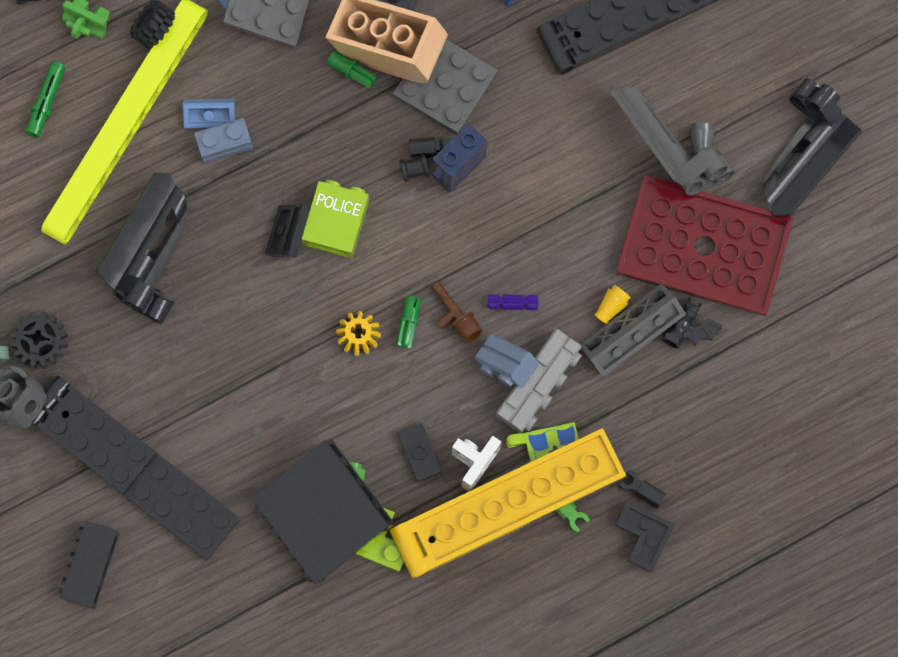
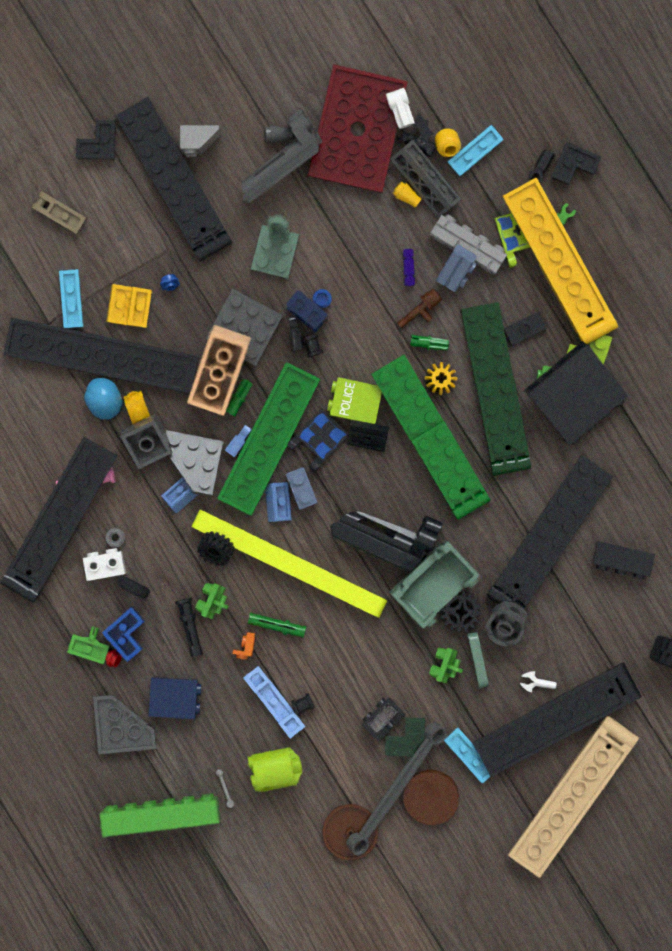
camera: 90 degrees left, 10 degrees up
(22, 61) = (248, 643): none -> orange bracket
(76, 301) = (434, 583): none -> sand green windscreen
(277, 313) = (430, 437): none -> green hinge
(292, 172) = (321, 436): none -> black flag
(293, 65) = (238, 441): none -> medium blue bar
(294, 104) = (268, 439): none -> green plate
(338, 407) = (496, 389): none -> dark green hinge
(477, 185) = (322, 298): none -> blue plate
(477, 461) = (531, 283): white bracket -> none
(547, 127) = (275, 248): none -> sand green bracket
(667, 400) = (475, 150): none -> medium azure plate
(680, 362) = (447, 142): none -> yellow head
(697, 32) = (197, 138): none -> light grey slope
(736, 298) = (399, 103): none -> white piece
(819, 140) = (271, 43): black panel -> none

